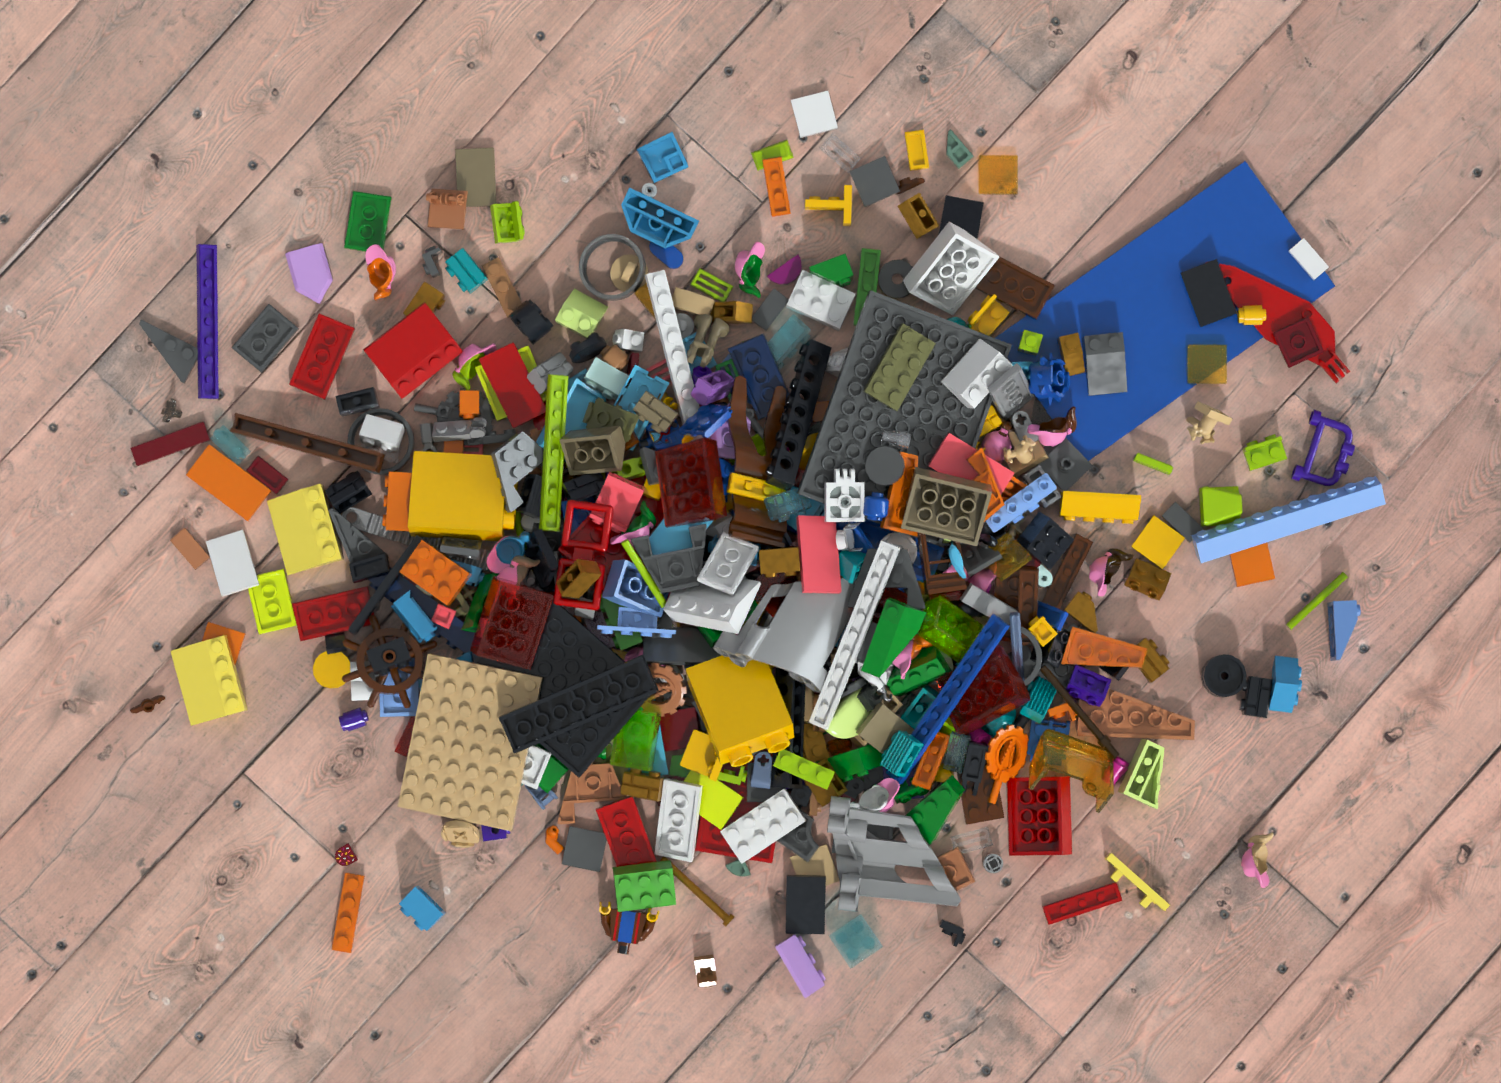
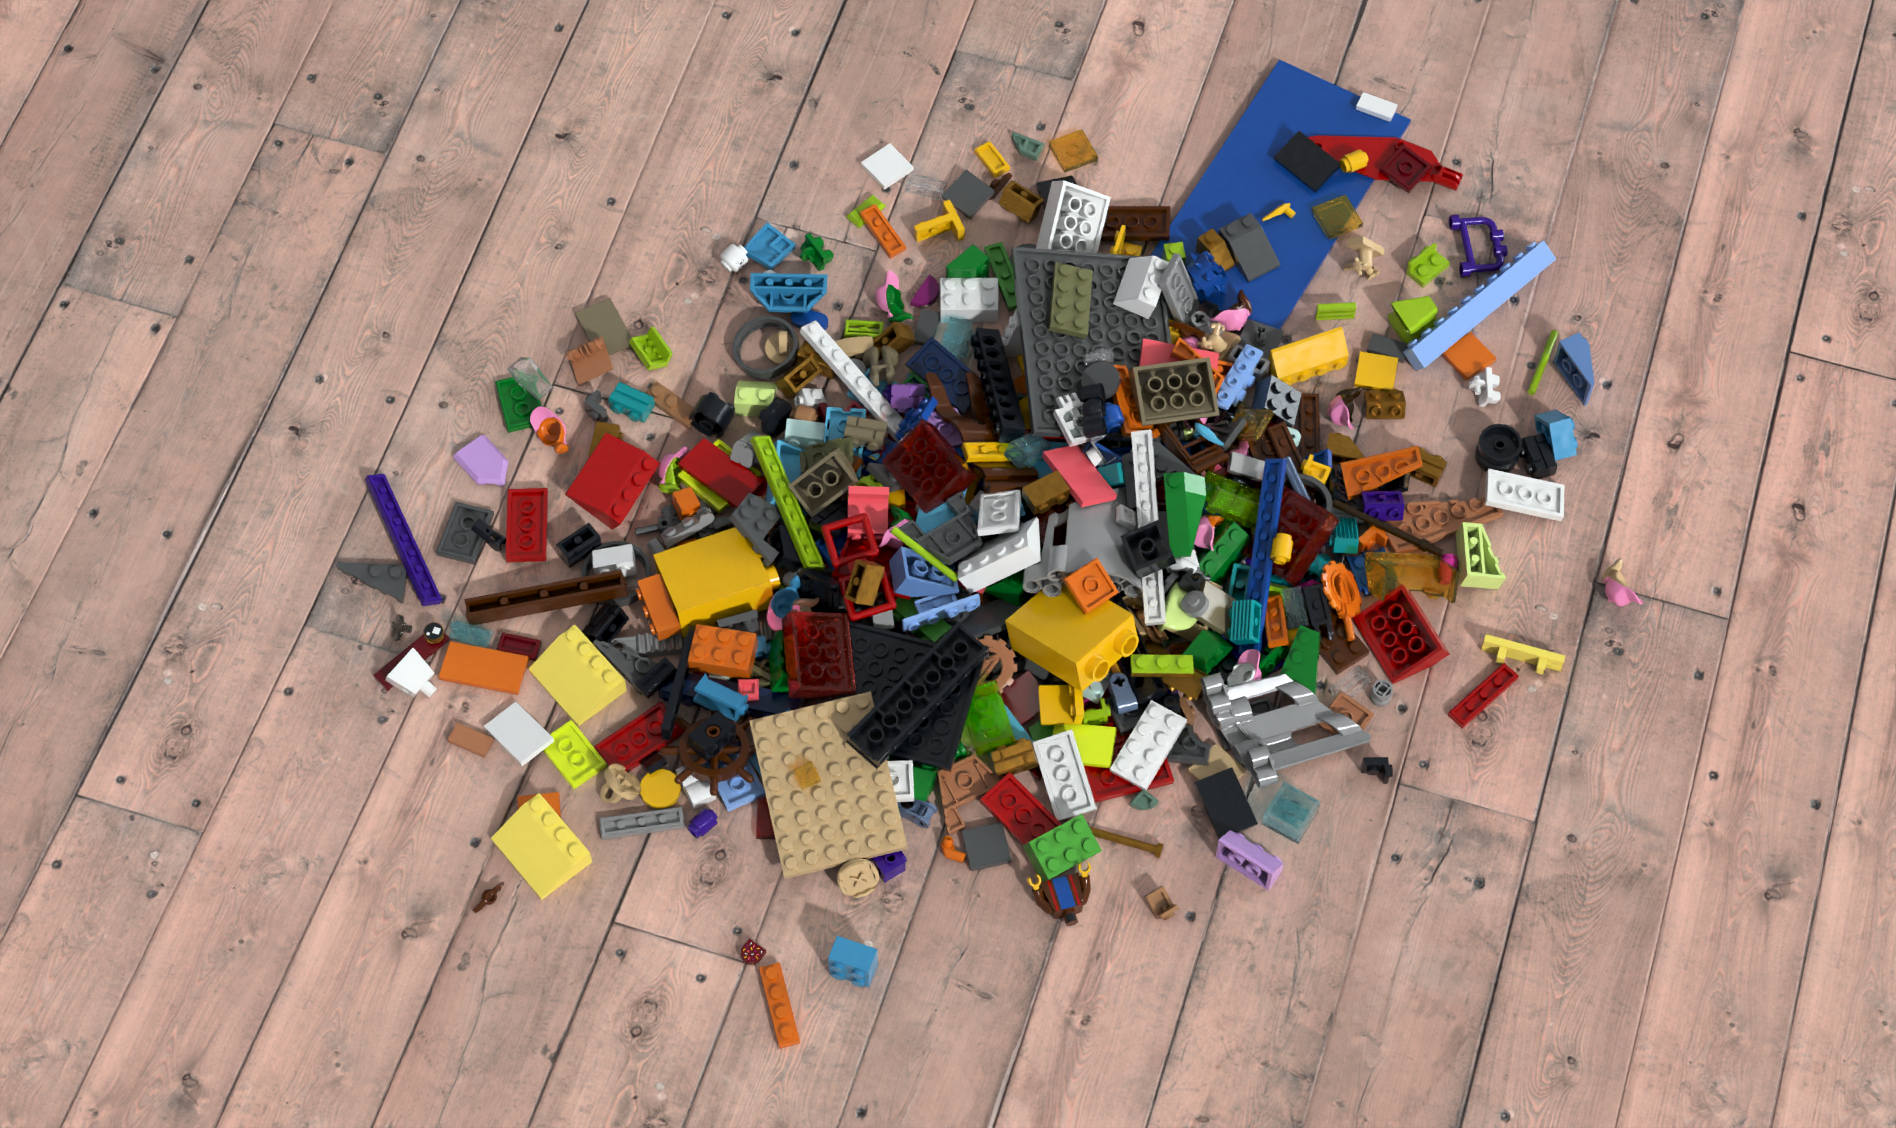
camera: 25 degrees left, 25 degrees down
(162, 466) = (412, 675): none -> white torso
(197, 431) = (433, 632): none -> tile
(281, 351) = (486, 532): none -> black bar
(298, 654) = (622, 784): none -> tan tile
(303, 694) = (642, 823): none -> light grey tile
(383, 206) = (530, 377): none -> clear slope
(453, 730) = (807, 775): none -> clear yellow tile
(625, 156) = (734, 257): none -> white head
(626, 315) = (798, 376): none -> pearl gold slope
(700, 183) = (813, 252): none -> green hips
(769, 680) = (1090, 585): none -> orange tile
(839, 664) = (1148, 549): none -> black brick
(840, 614) = (1126, 517): none -> white tile
(860, 500) = (1093, 410): none -> black piece
(860, 724) = (1195, 604): none -> light grey wheel
(964, 704) = (1281, 548): none -> yellow brick
(999, 430) = (1186, 330): none -> reddish brown piece
(1162, 333) = (1284, 208): none -> yellow bar
(1222, 731) = (1524, 495): none -> white plate
(1246, 604) = (1483, 387): none -> white hips

